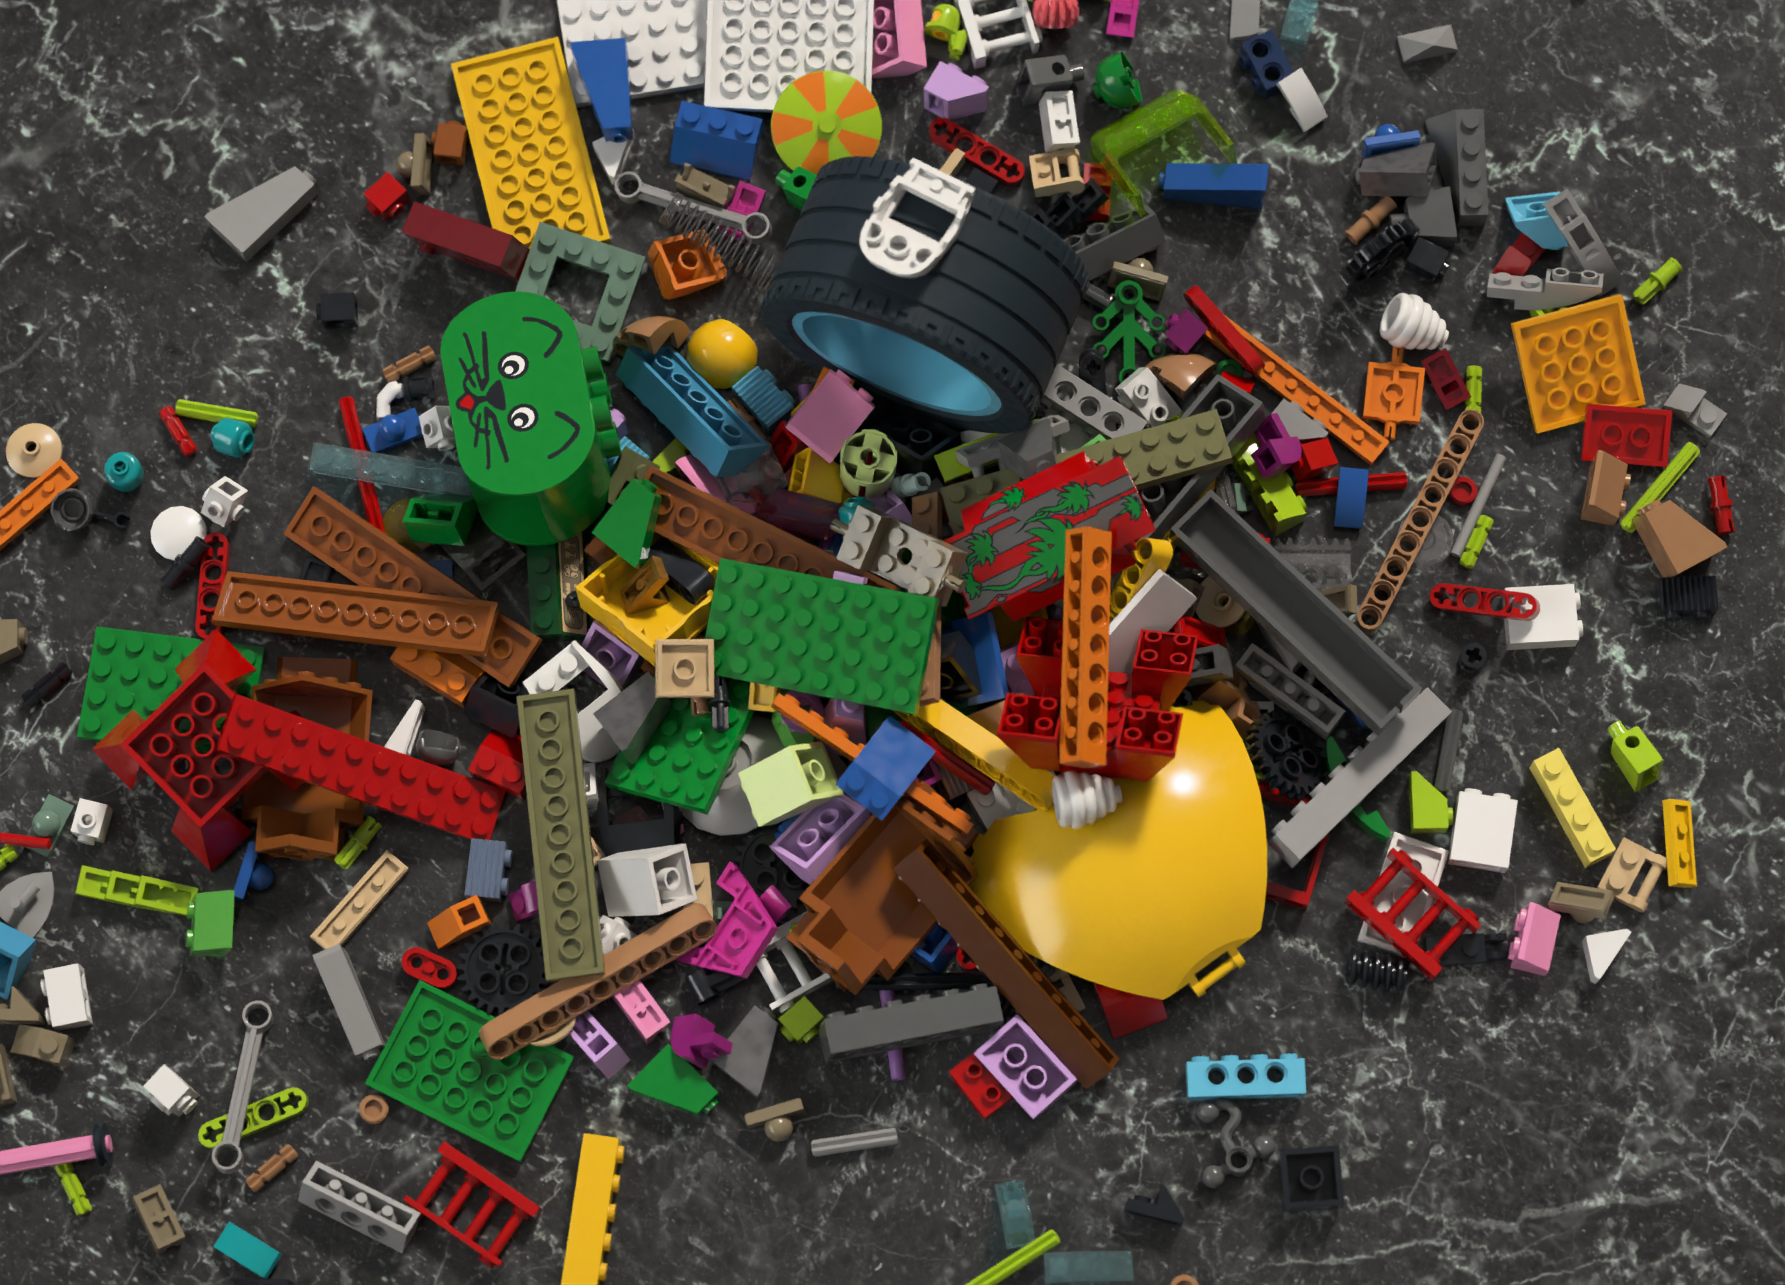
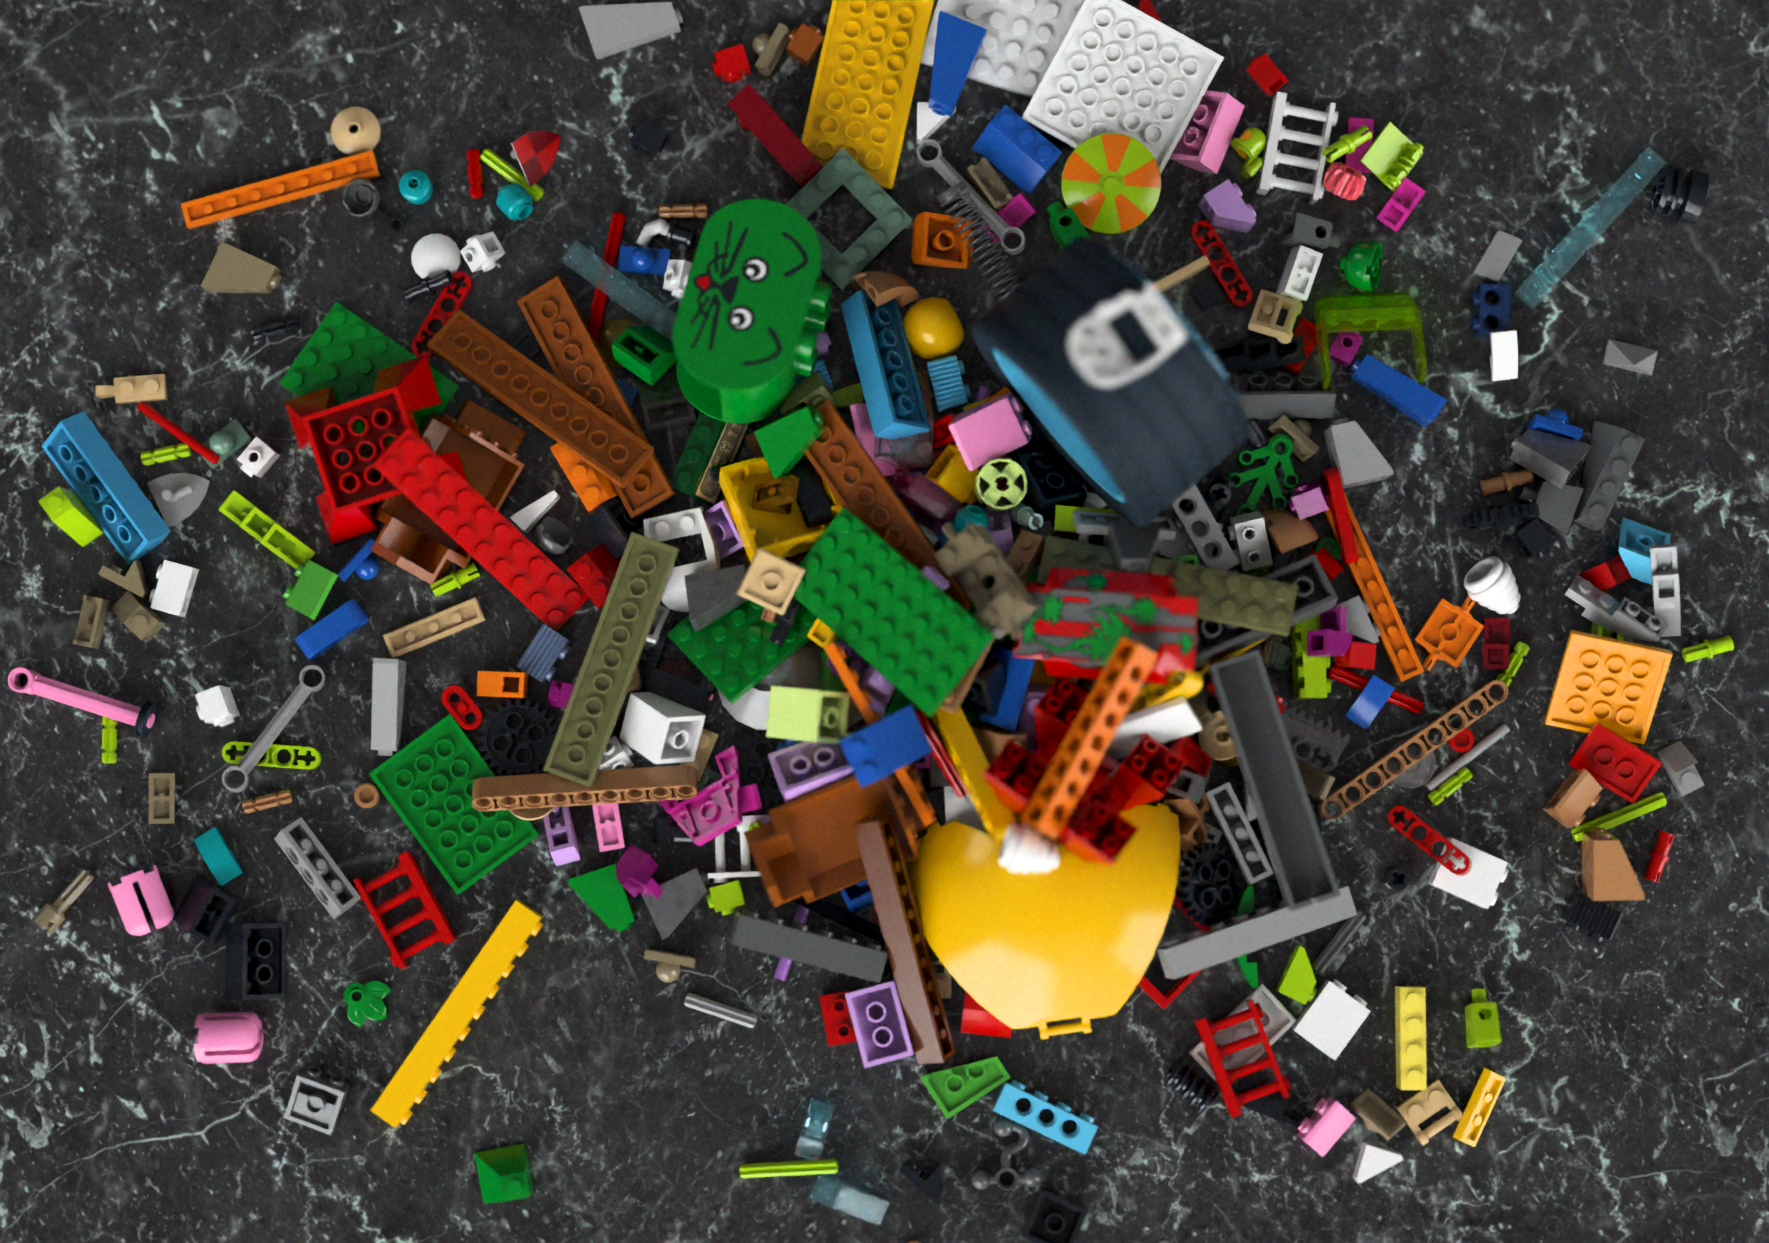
camera: 25 degrees right, 10 degrees up
(230, 379) = (535, 153): none -> shield
(253, 956) = (331, 629): none -> blue beam
(1141, 168) = (1344, 347): none -> magenta brick
(1145, 1088) = (964, 1084): none -> bright green wing
(1208, 264) = (1355, 454): none -> light grey slope

